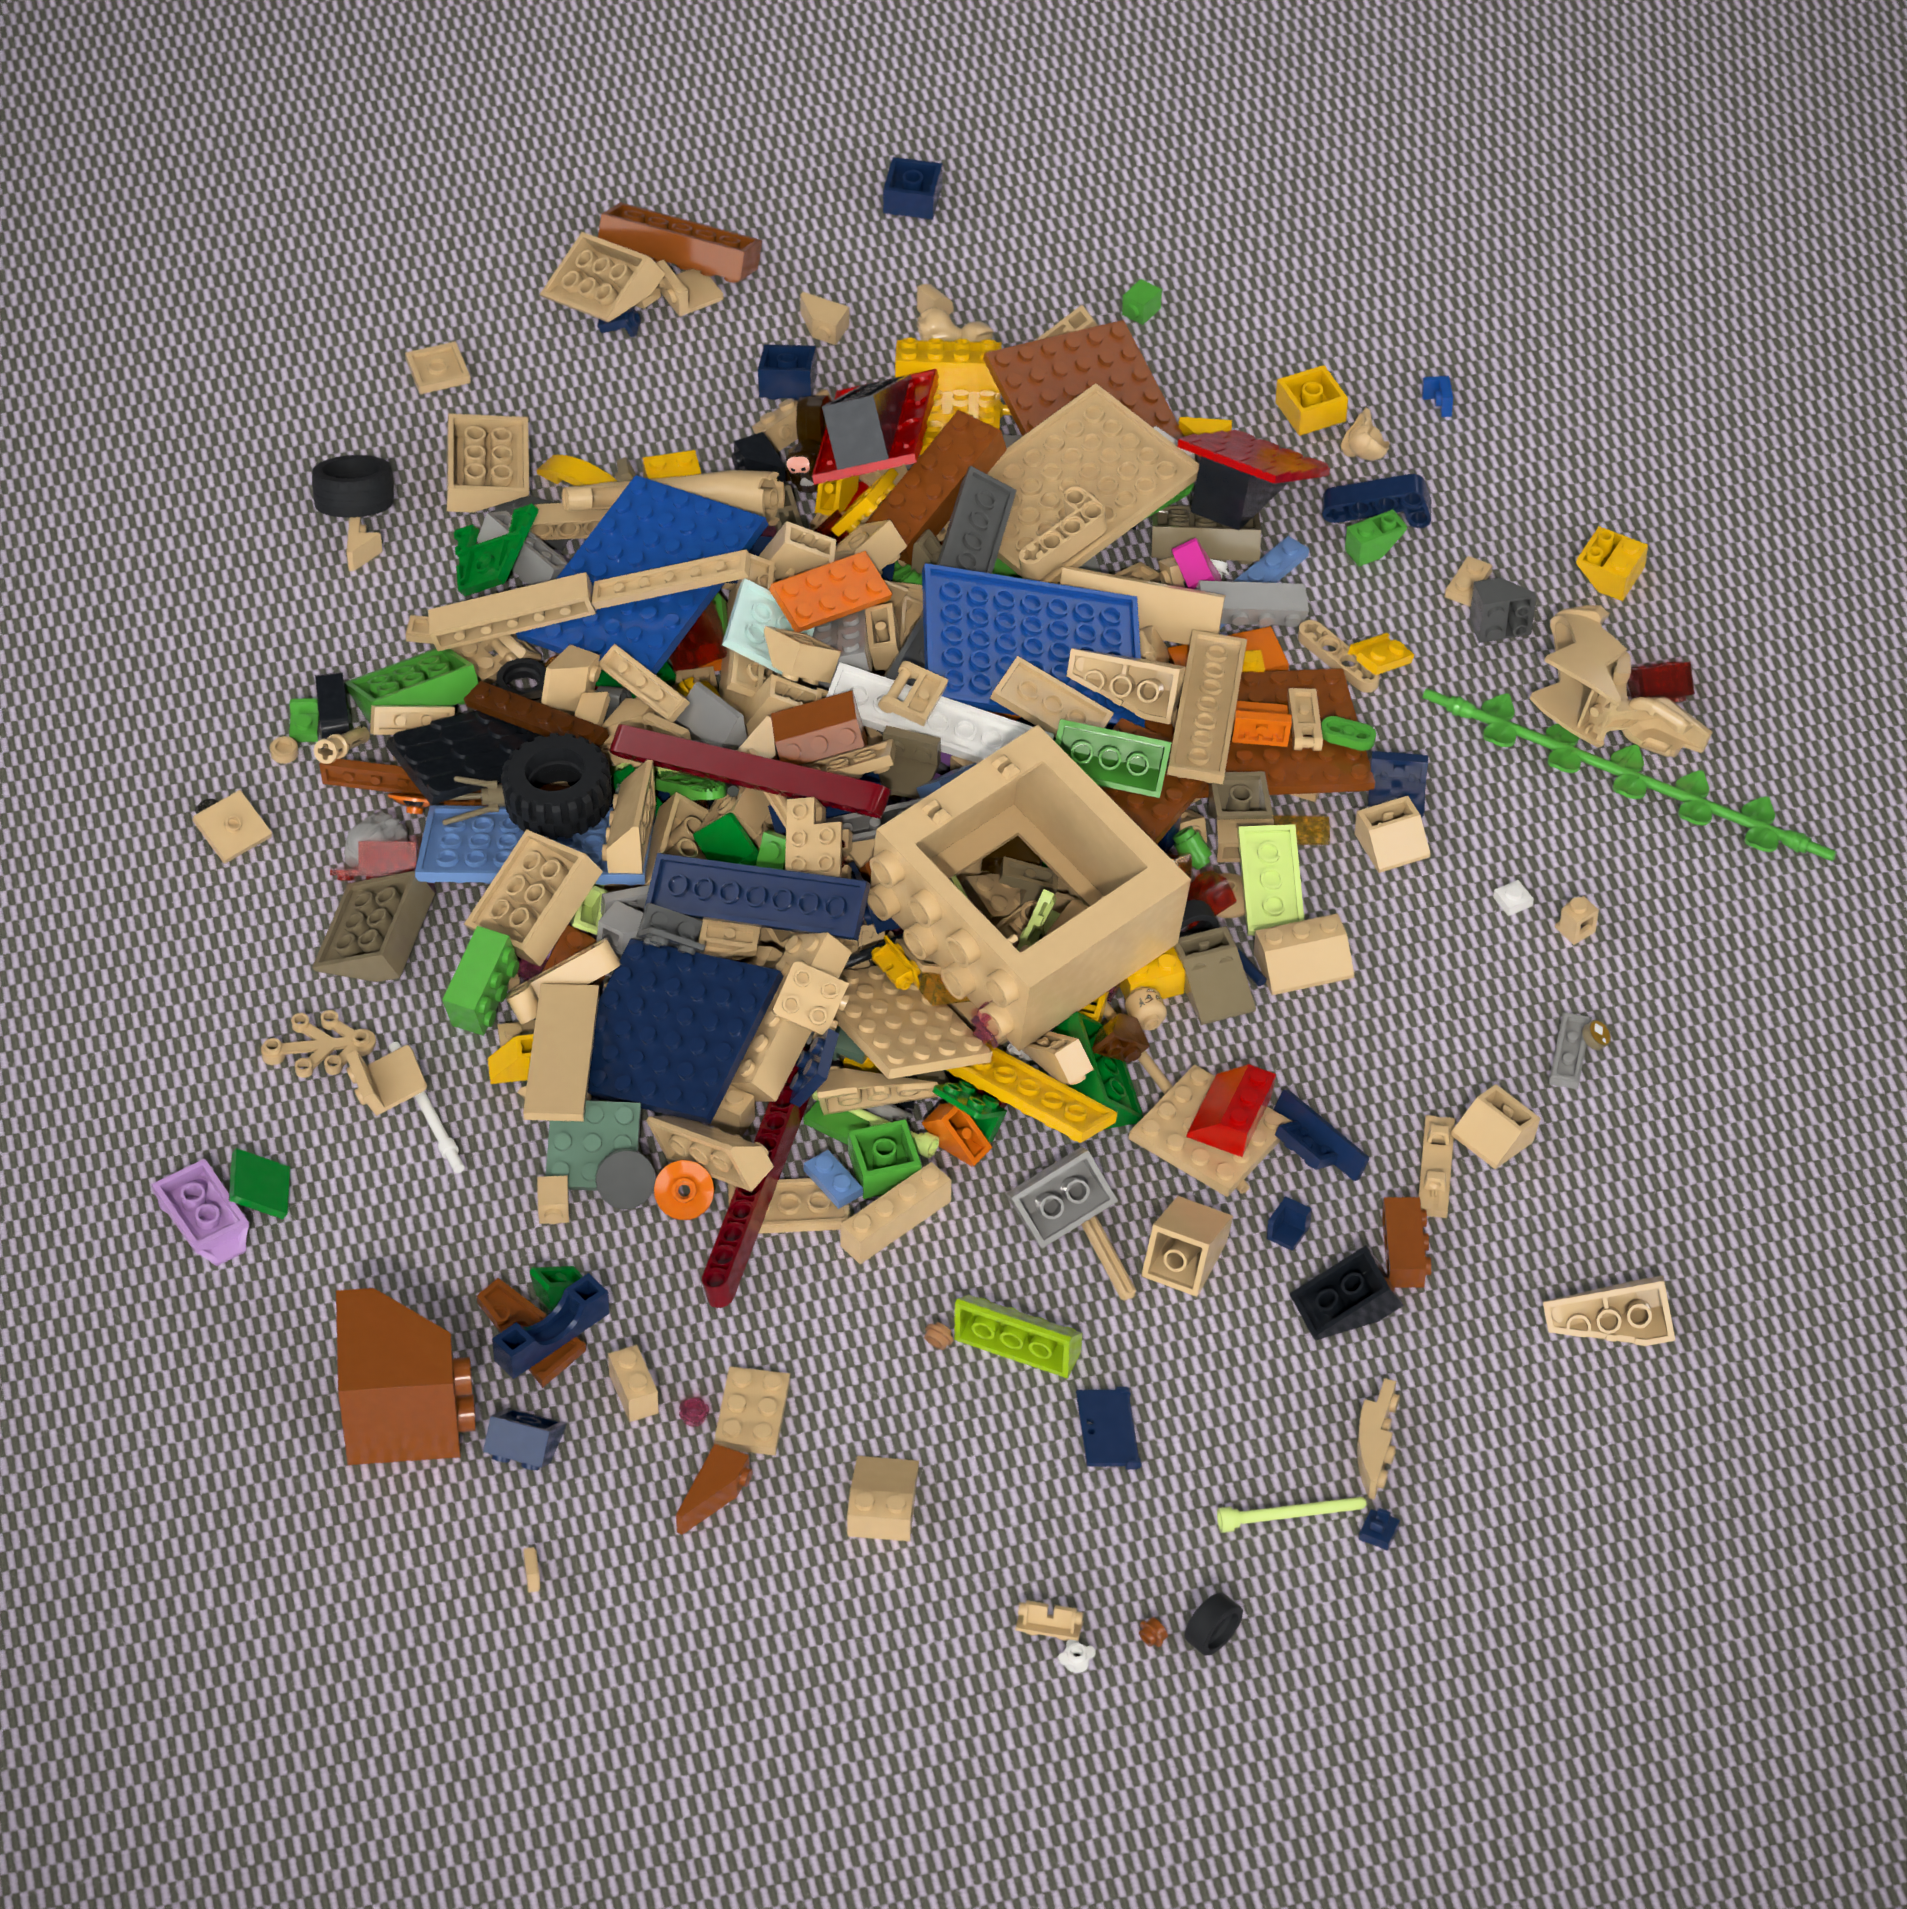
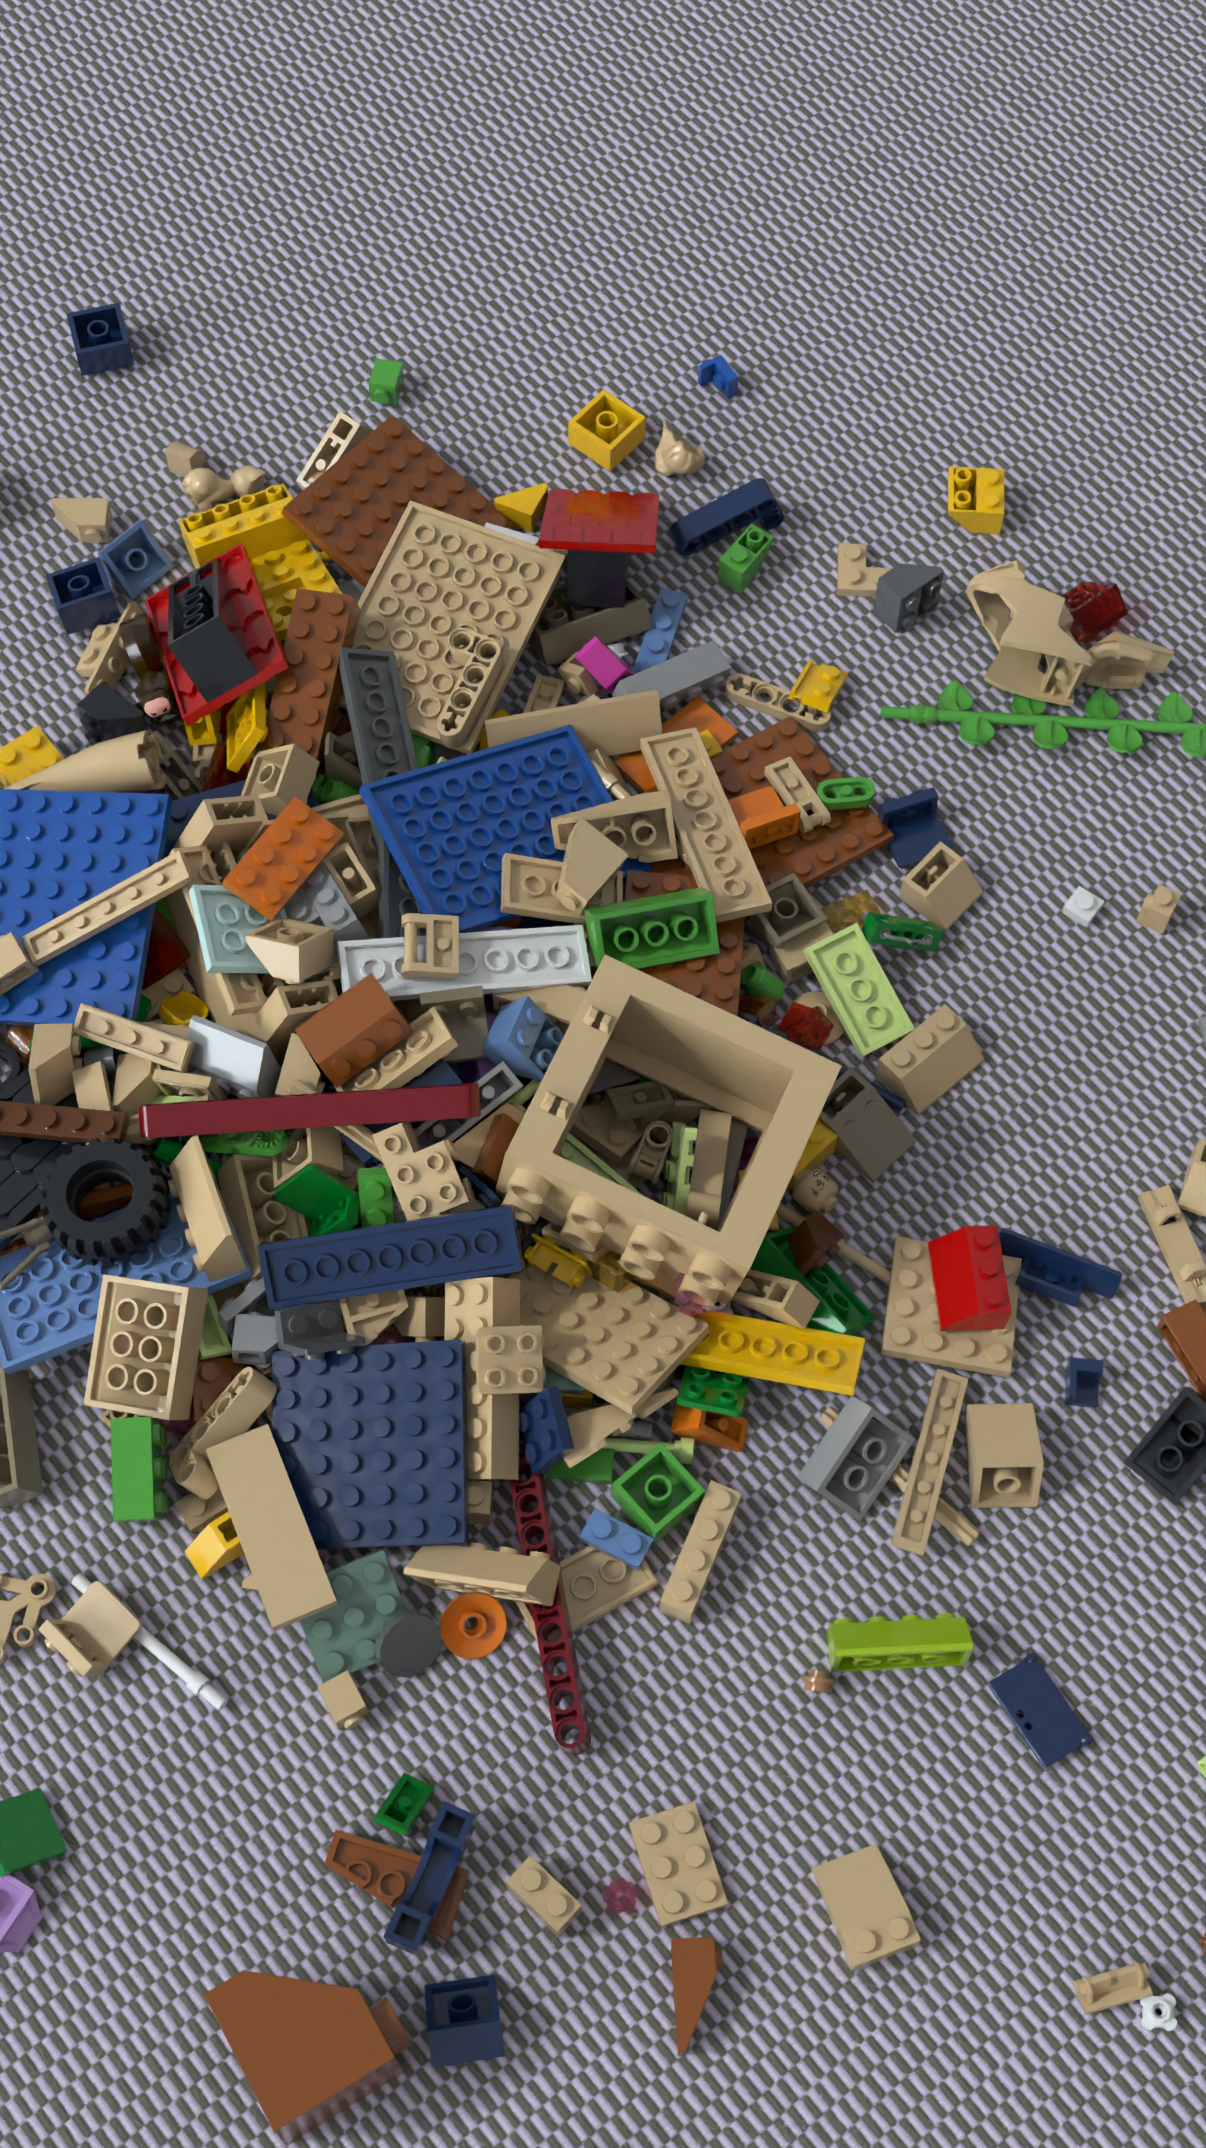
camera: 25 degrees left, 15 degrees up
(846, 361) = (134, 560): none -> medium blue slope
(1082, 692) = (587, 866): none -> tan slope
(1121, 1222) = (929, 1462): none -> tan plate
(1356, 865) = (901, 931): none -> green piece

